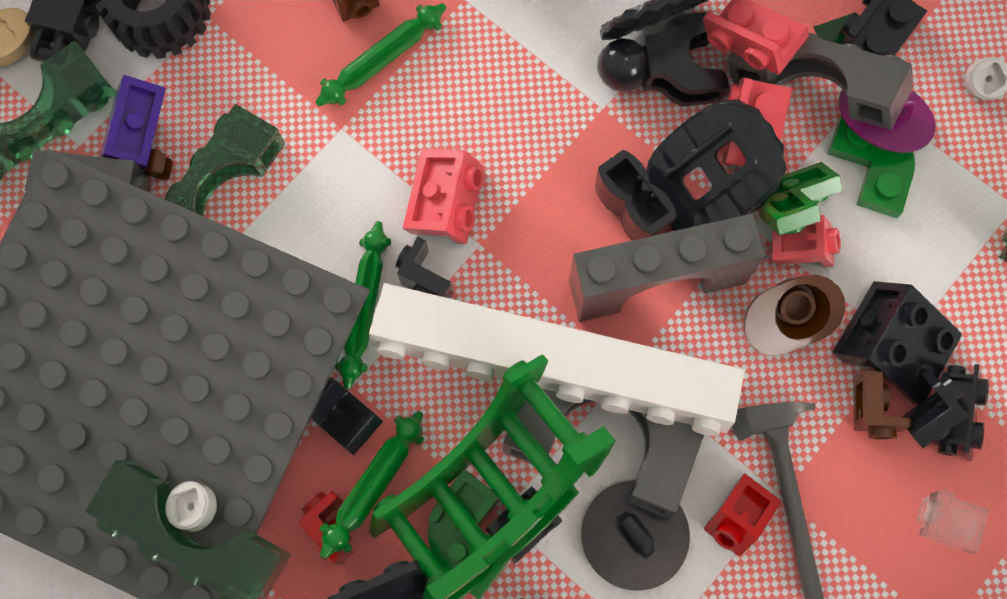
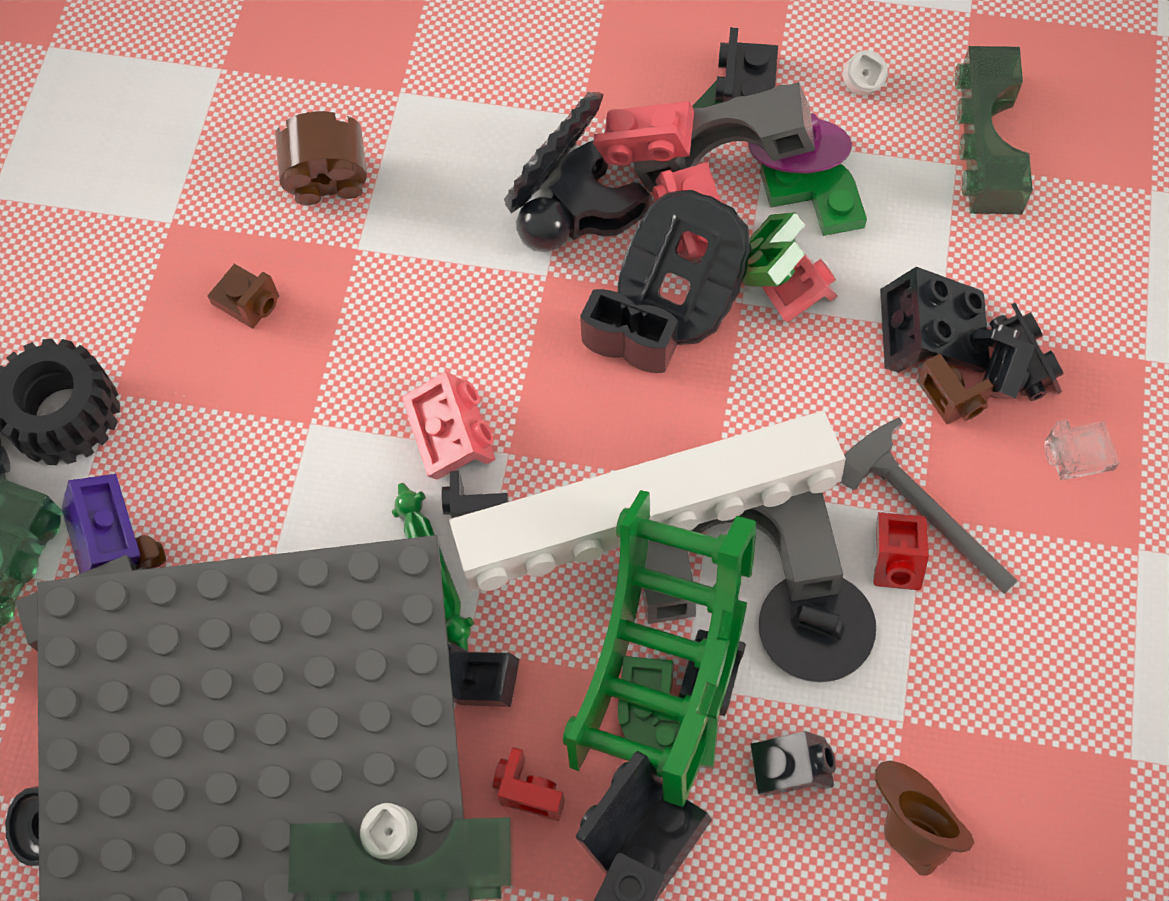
camera: 30 degrees left, 10 degrees down
(238, 148) = (223, 489): clear green arch -> none
(371, 485) = (546, 721): green wheel -> none
(380, 54) = (308, 337): green wheel -> none
(716, 252) = (729, 333): dark grey arch -> none
(794, 314) = (833, 349): reddish brown piece -> none

